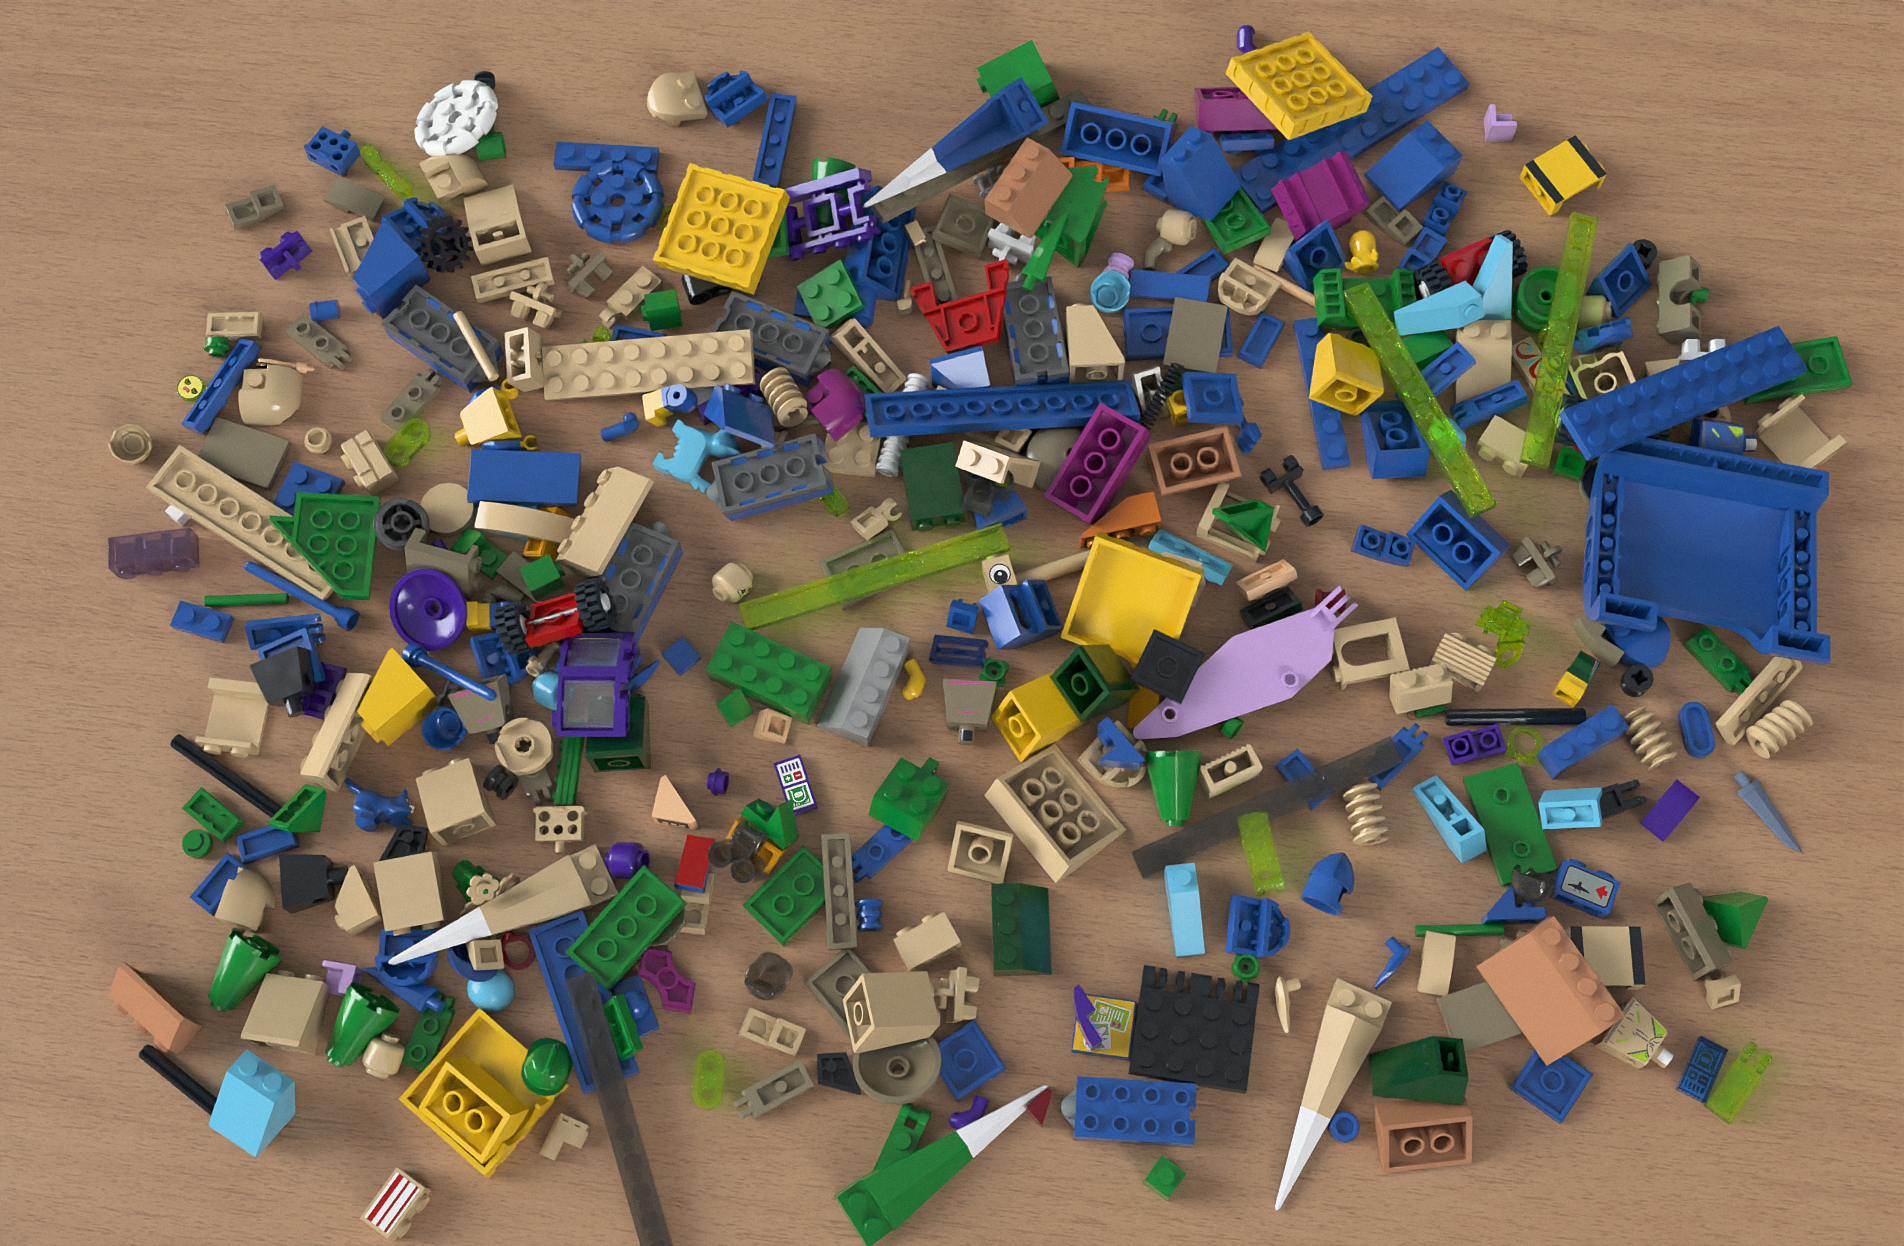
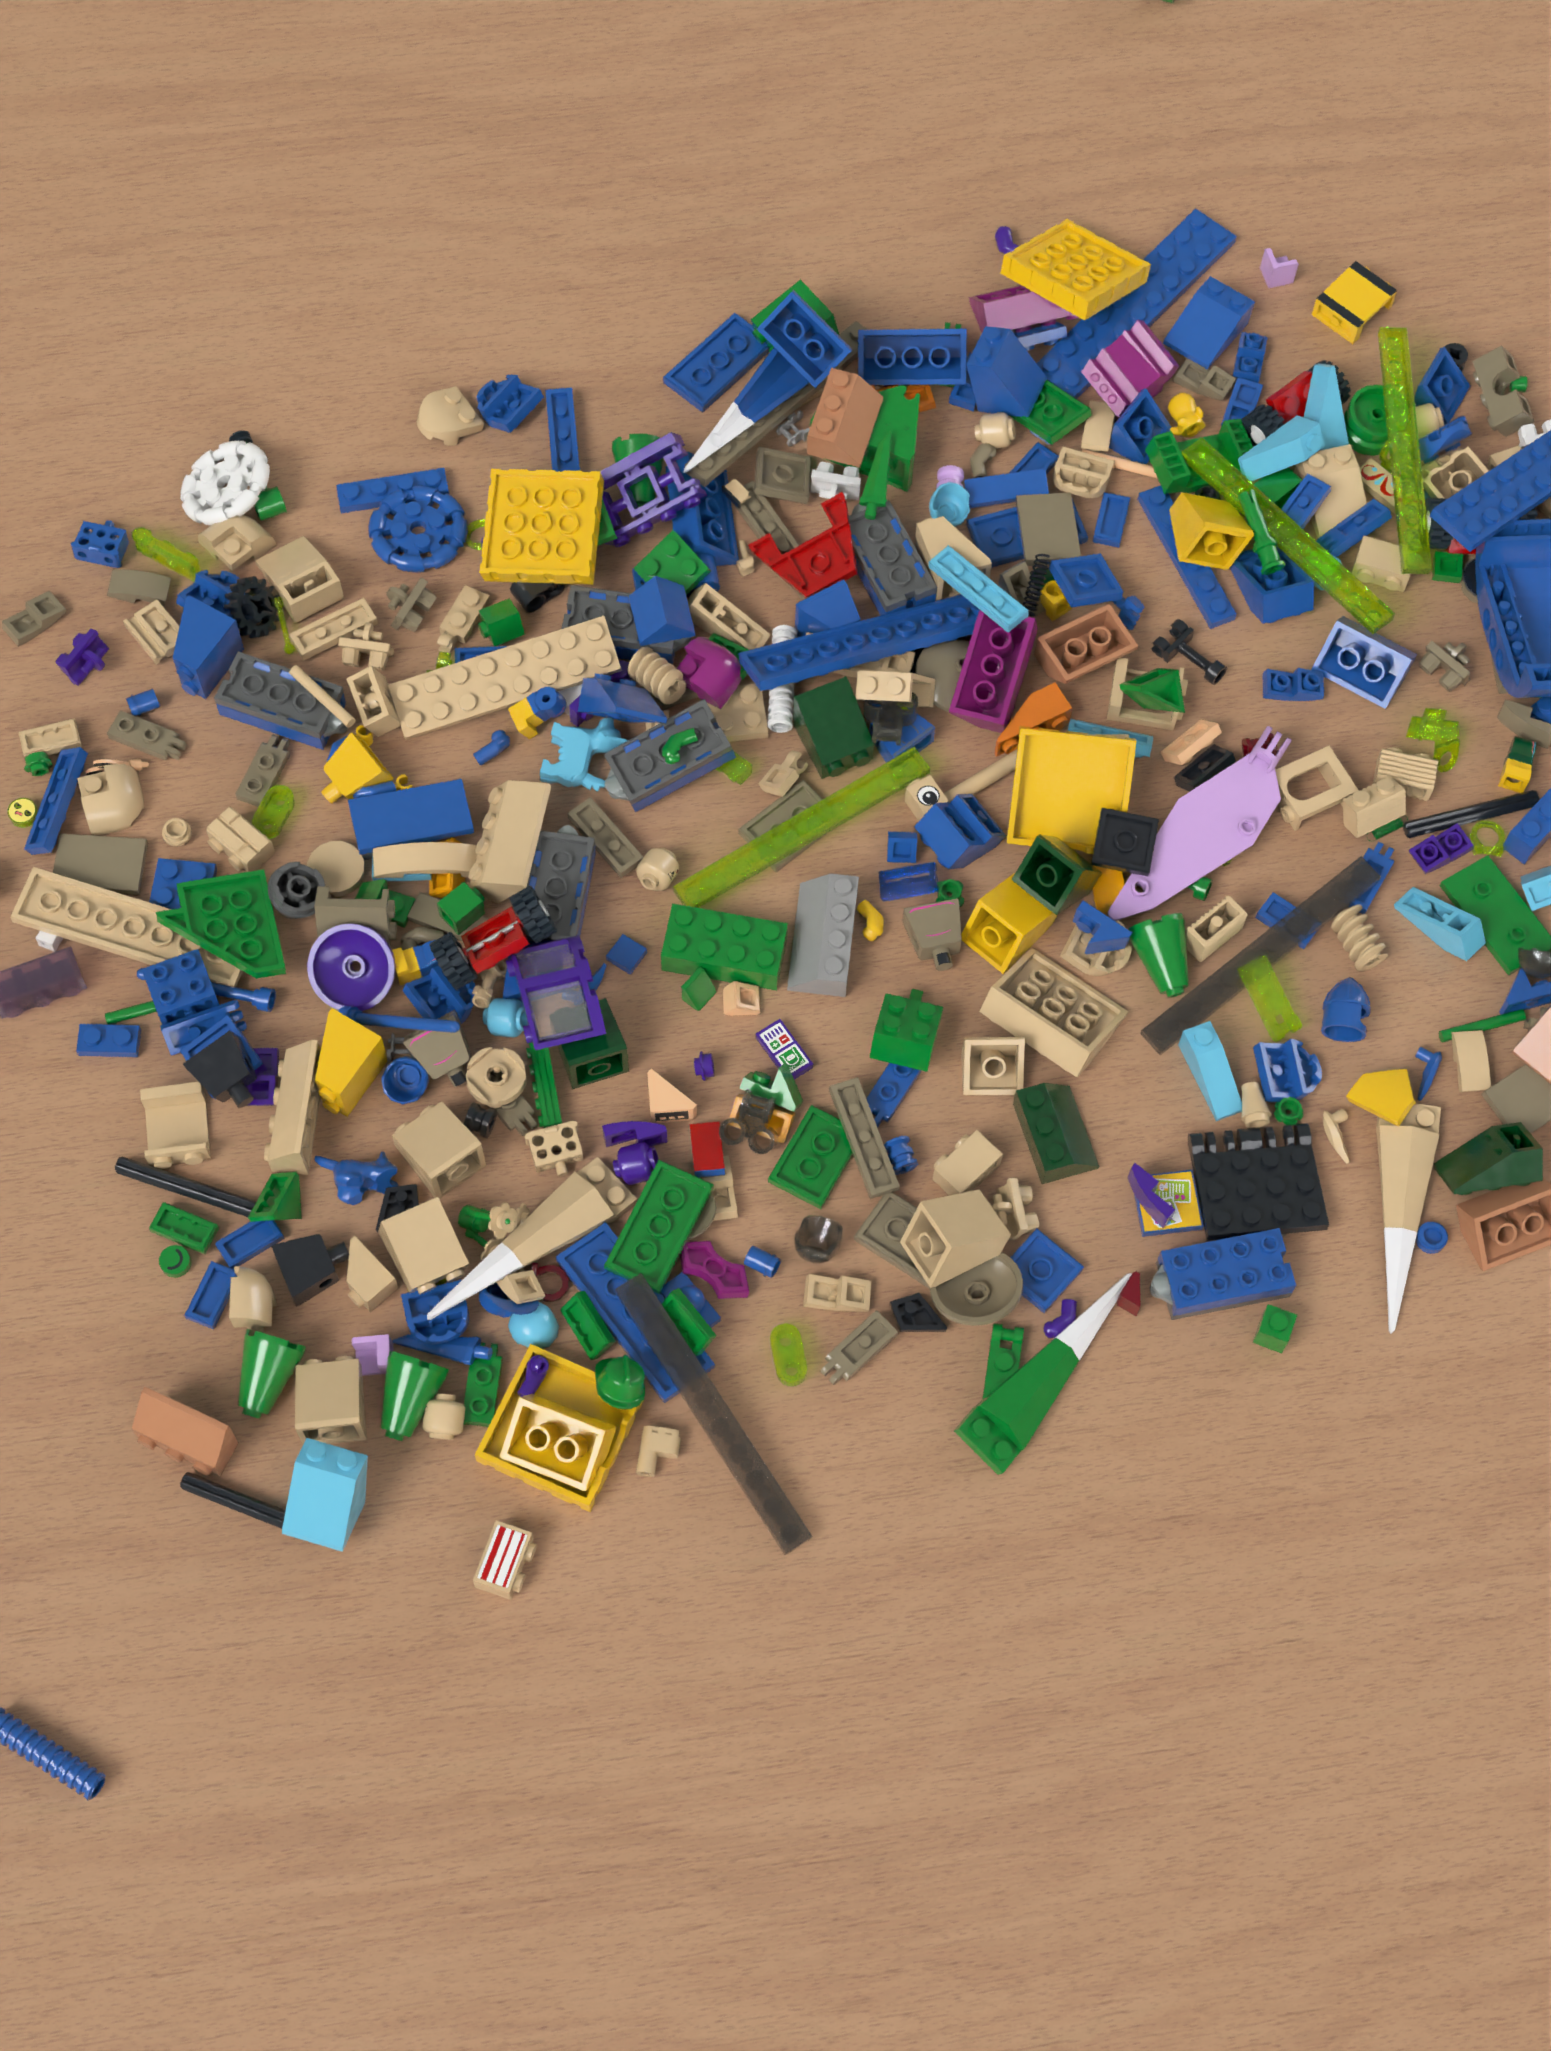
camera: 20 degrees left, 5 degrees down
(273, 589) = (180, 986): none -> blue bracket
(469, 289) = (288, 648): none -> clear neon green hinge
(476, 1036) = (535, 1374): none -> dark purple arm
(537, 1002) = (587, 1325): none -> green plate
(641, 833) = (646, 1132): none -> dark purple slope
(695, 539) = (608, 838): none -> dark tan plate
(712, 984) = (762, 1261): none -> blue piece
(775, 469) = (674, 744): none -> green arm
(805, 337) = (661, 612): none -> blue slope
(937, 101) = (716, 363): none -> blue tile
(1008, 104) = (804, 338): none -> blue slope
(1102, 386) = (978, 588): none -> medium azure tile
(1213, 954) = (1254, 1107): none -> tan cone
(1341, 976) = (1384, 1094): none -> yellow slope
(1392, 402) = (1264, 544): none -> green pin

